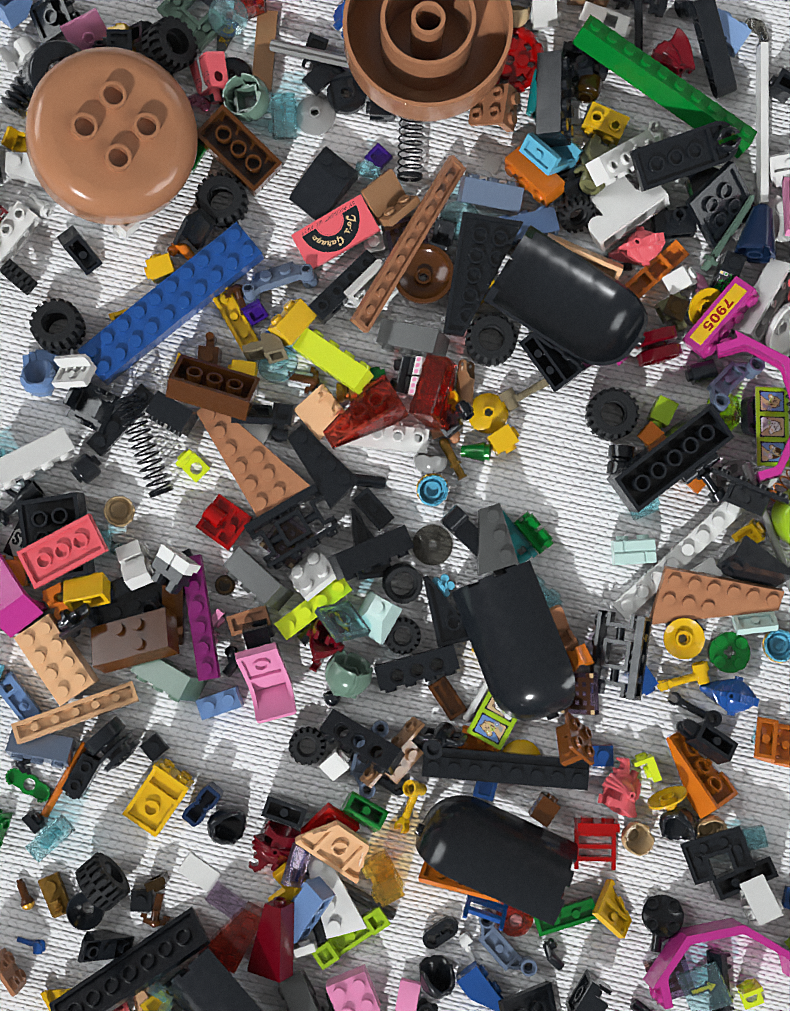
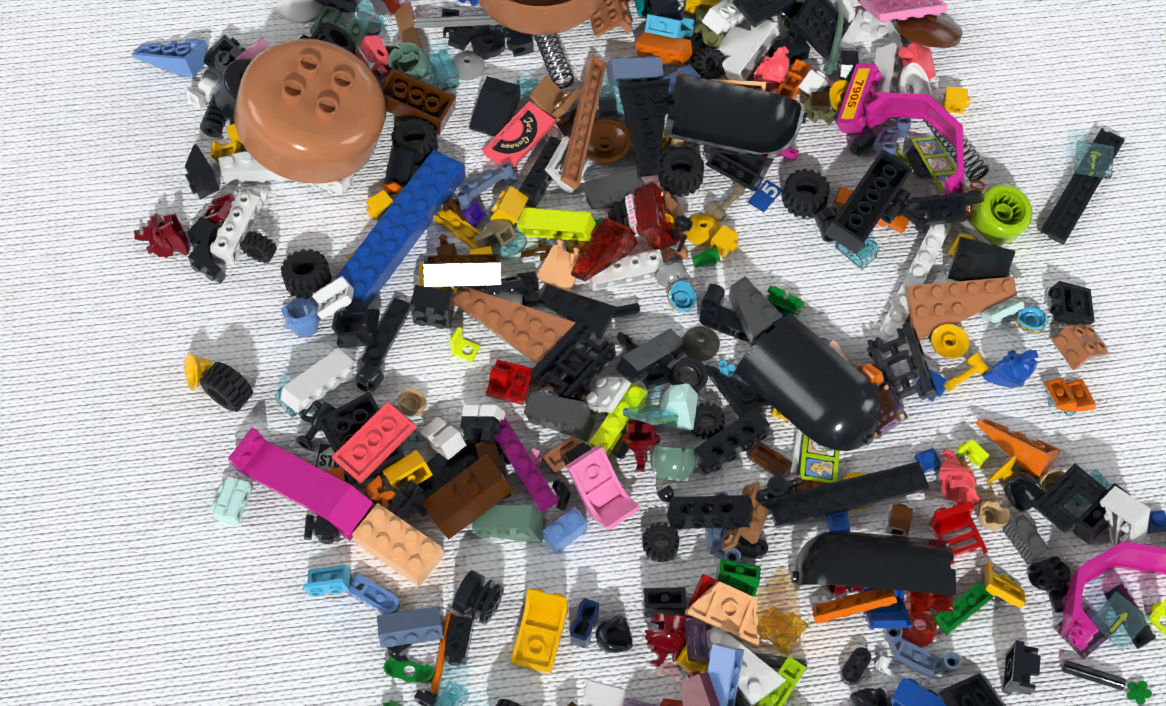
camera: 25 degrees left, 25 degrees down
(74, 712) = (432, 582): light nougat plate -> none
(79, 250) = (304, 214): black slope -> none
(133, 398) = (391, 308): black piece -> none
(154, 747) = (516, 594): black plate -> none
(224, 585) = (530, 433): dark brown plate -> none
(336, 763) = (694, 543): white slope -> none
(373, 508) = (636, 328): black plate -> none
(379, 156) = (532, 74): dark purple tile -> none
(412, 789) = (776, 545): yellow brick -> none
(449, 453) = (692, 273): pearl gold piece -> none
(554, 960) = (969, 649): black arm -> none
(570, 396) = (765, 196): none -> blue sticker
(574, 741) = (897, 449): dark orange bracket -> none
(634, 550) = (873, 289): light aqua brick -> none
(657, 347) = (819, 132): dark red wheel -> none
(657, 873) = (1025, 539): none -> dark grey brick
(662, 411) = (845, 178): lime brick -> none
(697, 711) = (1004, 395): black brick -> none
(707, 740) = (1011, 411): black hinge -> none
(738, 644) = (997, 332): green plate -> none
(758, 236) = (860, 36): dark blue cone -> none

